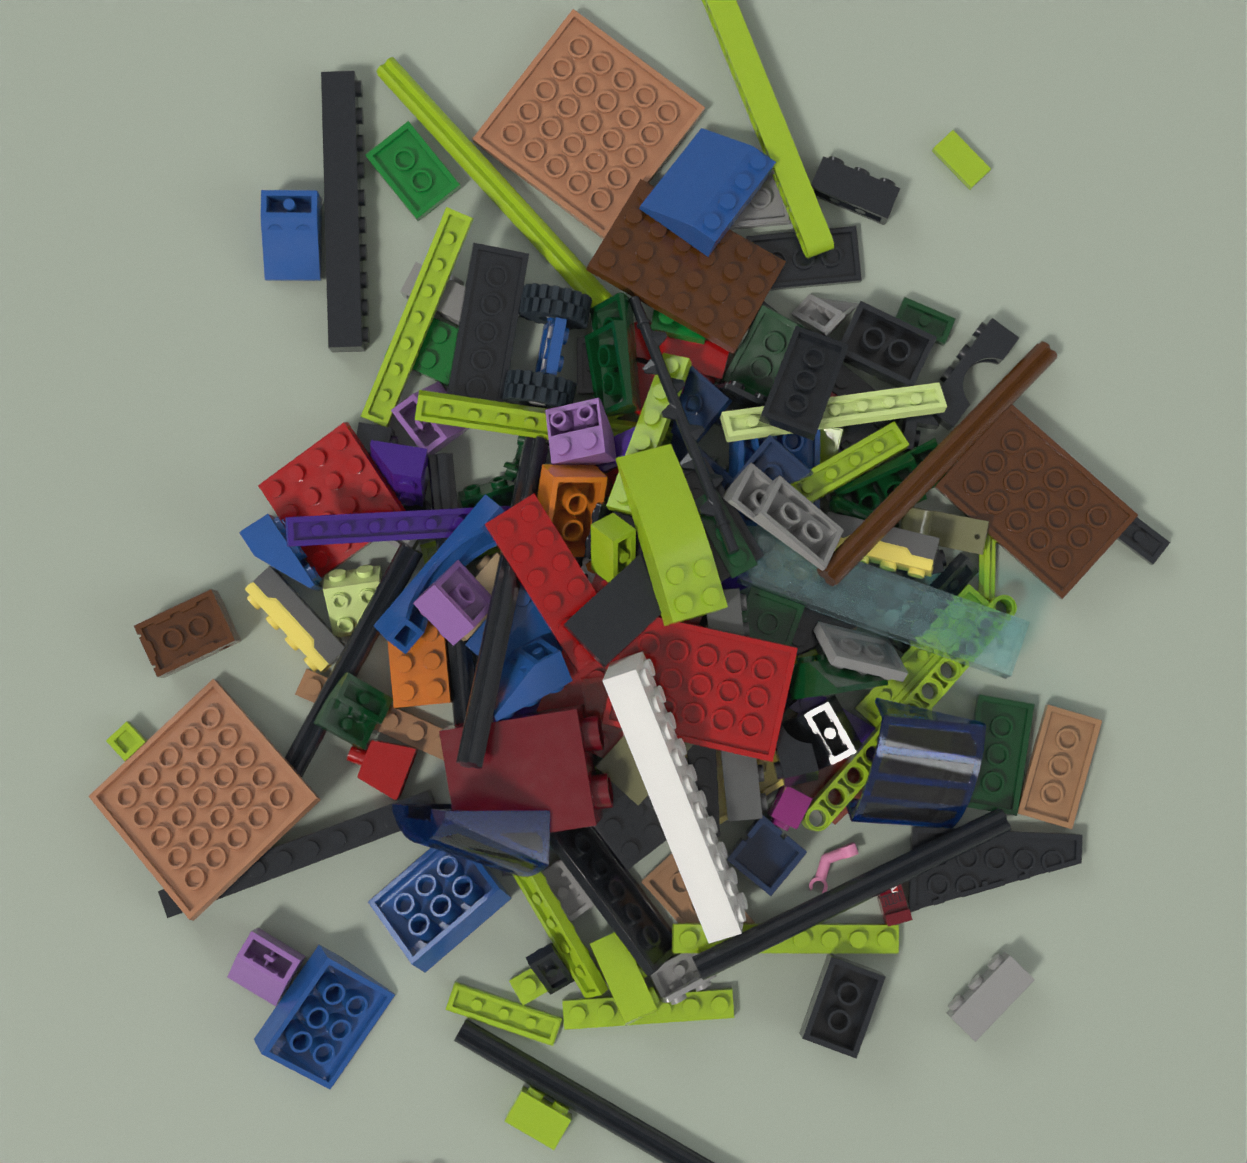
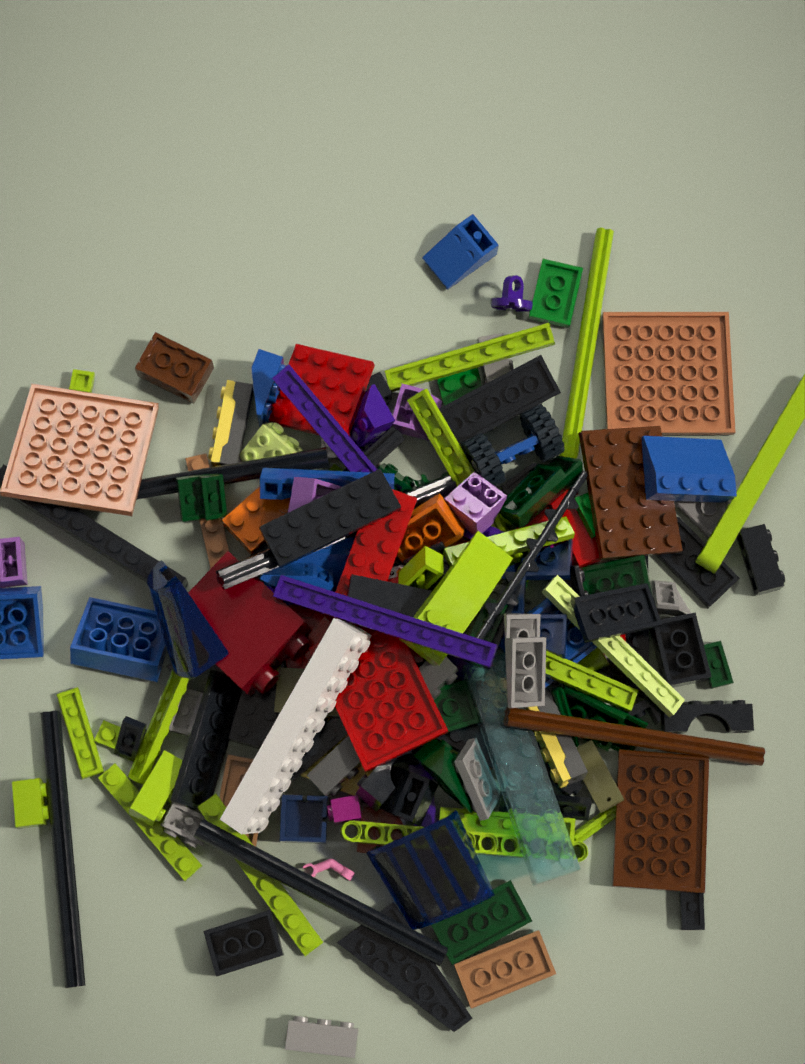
camera: 50 degrees right, 10 degrees down
(343, 211) = (489, 278): black brick -> none
(384, 766) = (181, 543): red torso -> none
(385, 222) = (512, 298): none -> dark purple tile
(488, 601) = (330, 518): none -> black plate
(644, 629) = (386, 621): none -> dark purple plate
(894, 906) = (334, 928): dark red leg -> none

